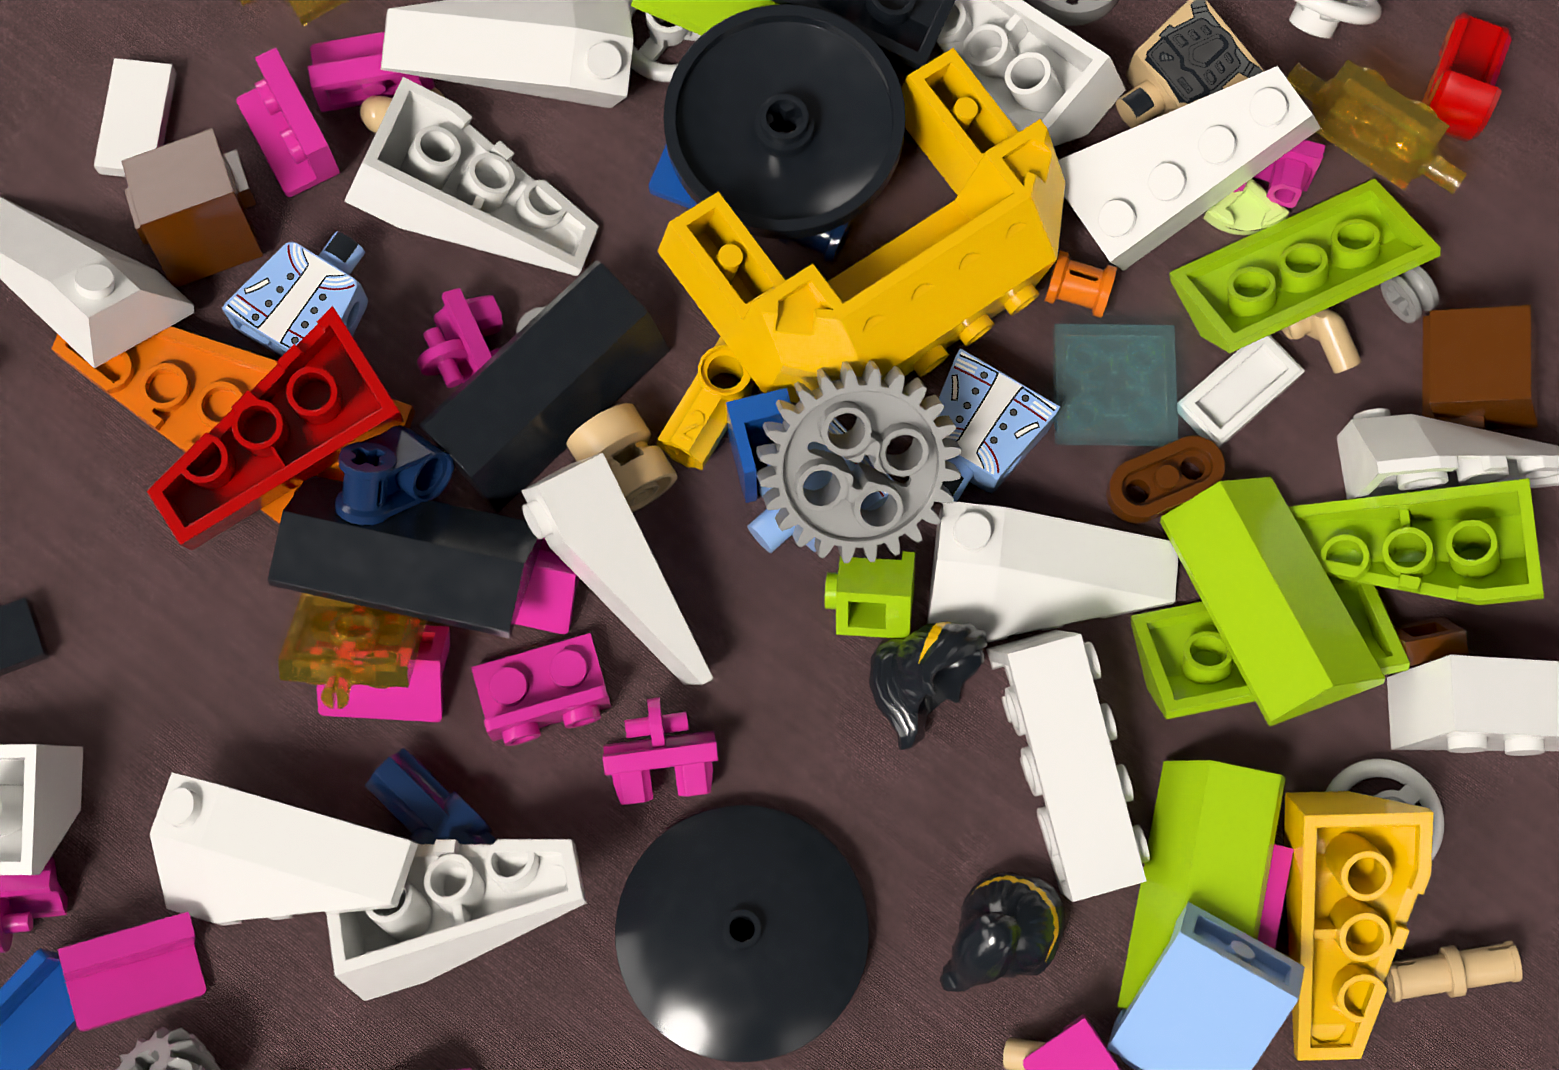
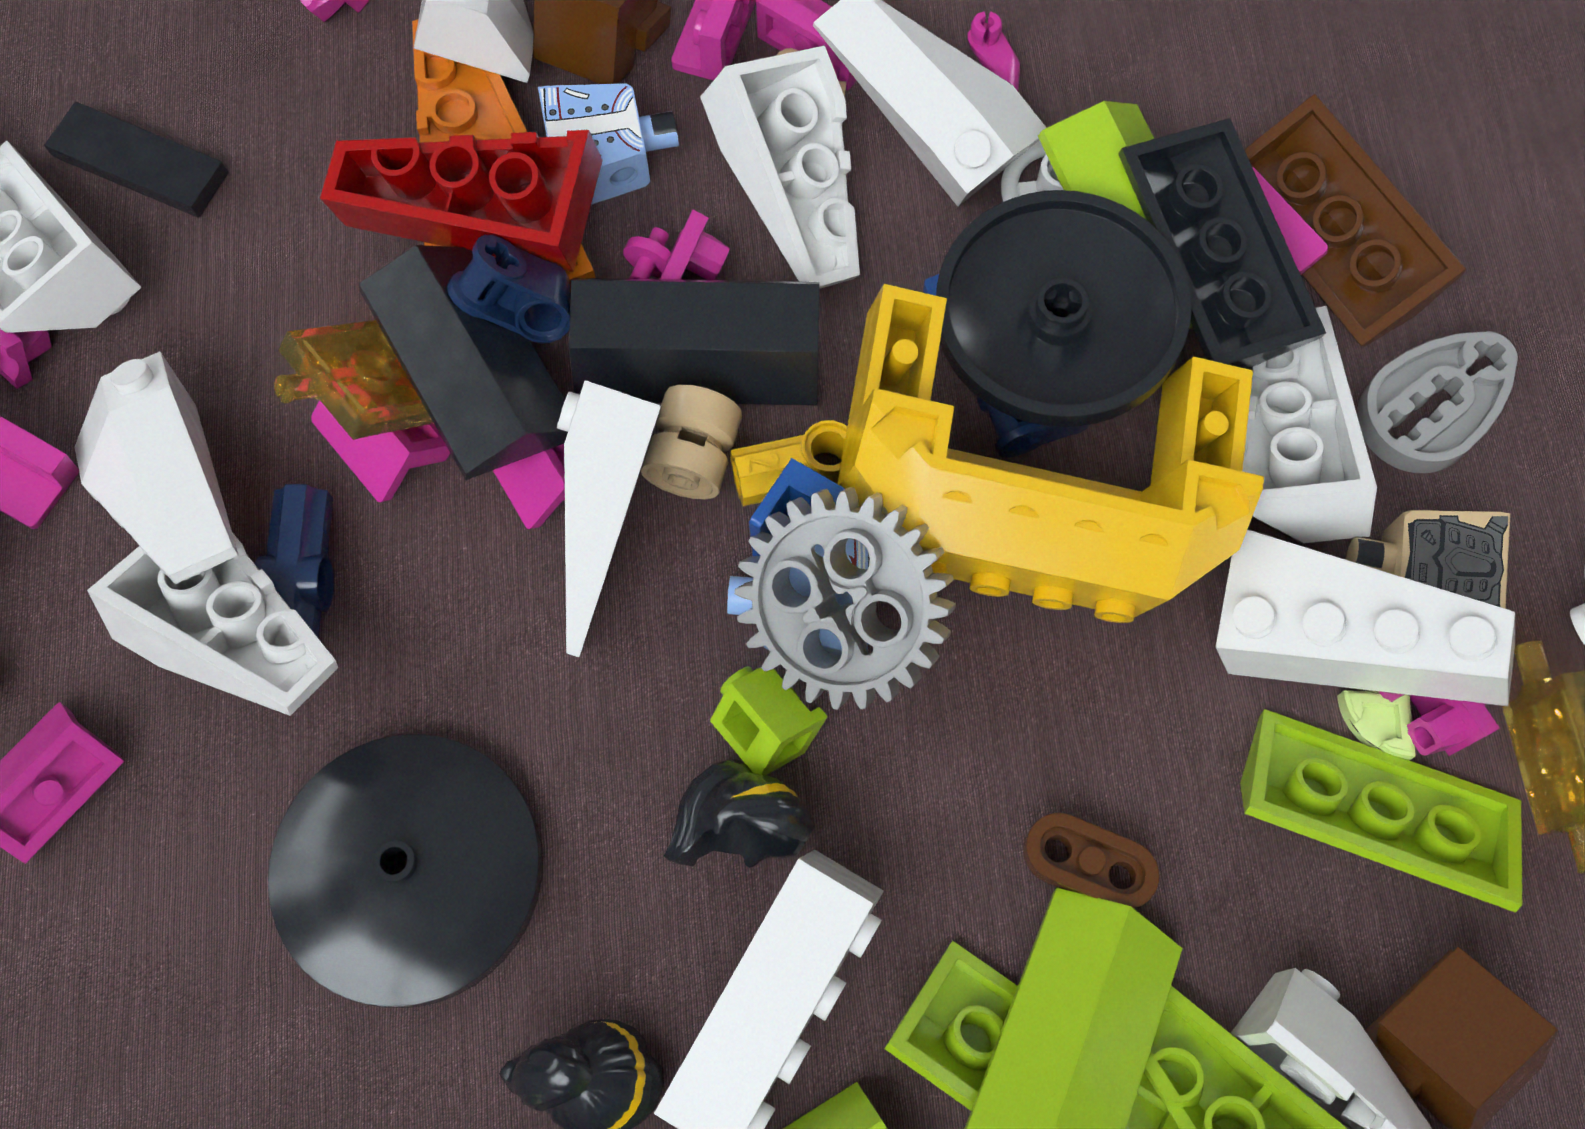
camera: 50 degrees right, 5 degrees down
(541, 690) = (466, 547): dark pink bracket -> none
(633, 760) = (467, 662): dark pink hips -> none
(993, 421) = (986, 679): torso -> none
(1039, 571) = (905, 825): white wedge -> none
(1081, 284) = (1178, 647): orange bush -> none
(1115, 384) = (1126, 749): clear light blue tile -> none
(1239, 390) = (1227, 854): white tile -> none
(1333, 335) = (1353, 886): tan arm -> none
(1410, 294) = (1457, 920): light grey bush -> none

